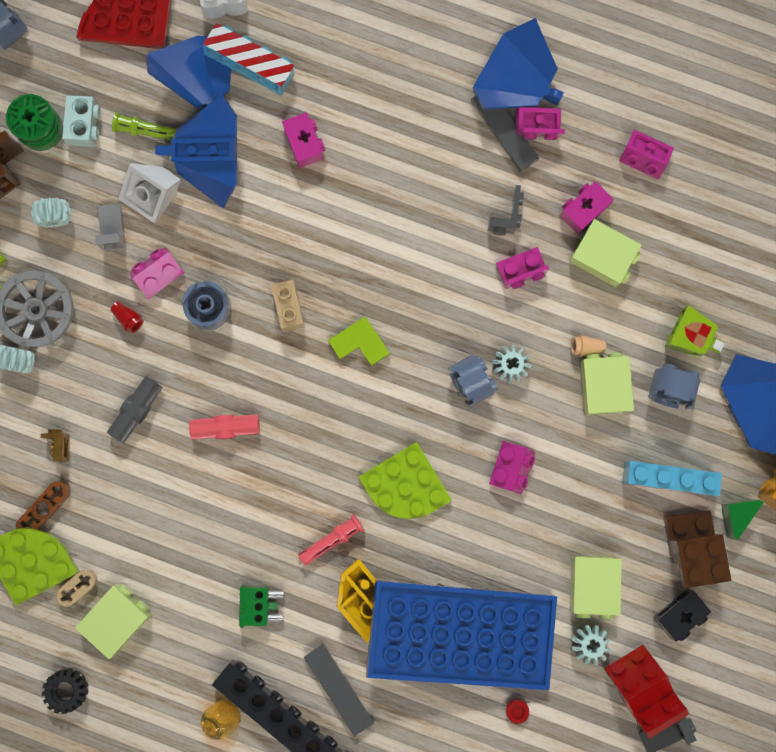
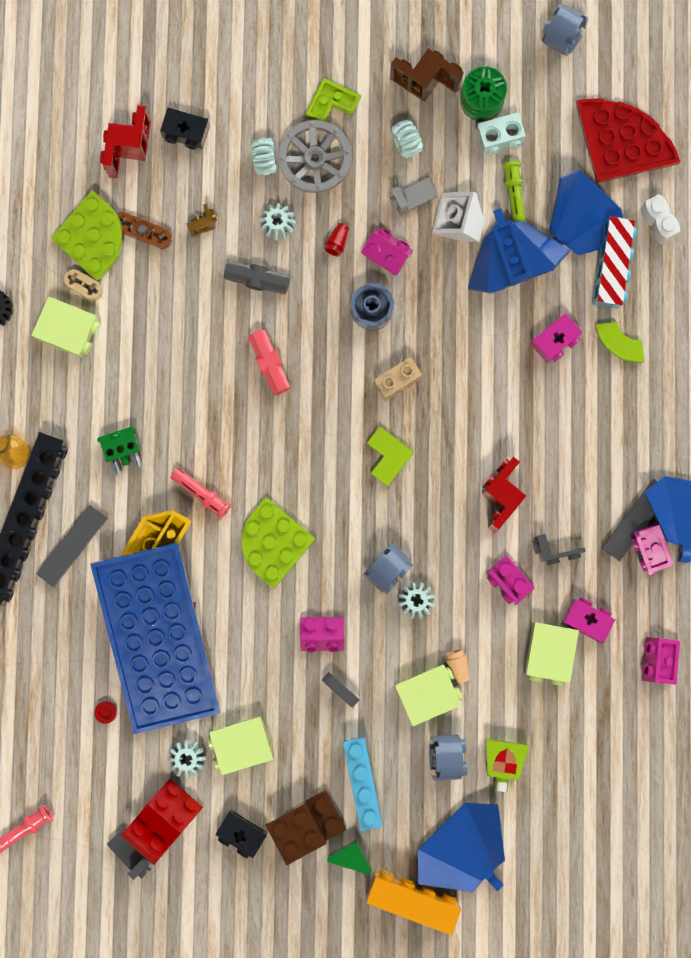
camera: 75 degrees right, 0 degrees up
(94, 371) = (286, 221): none -> light aqua gear
(330, 84) = (619, 344): none -> lime tile
(438, 243) = (503, 494): none -> red bracket
(573, 468) = (342, 691): none -> dark grey beam

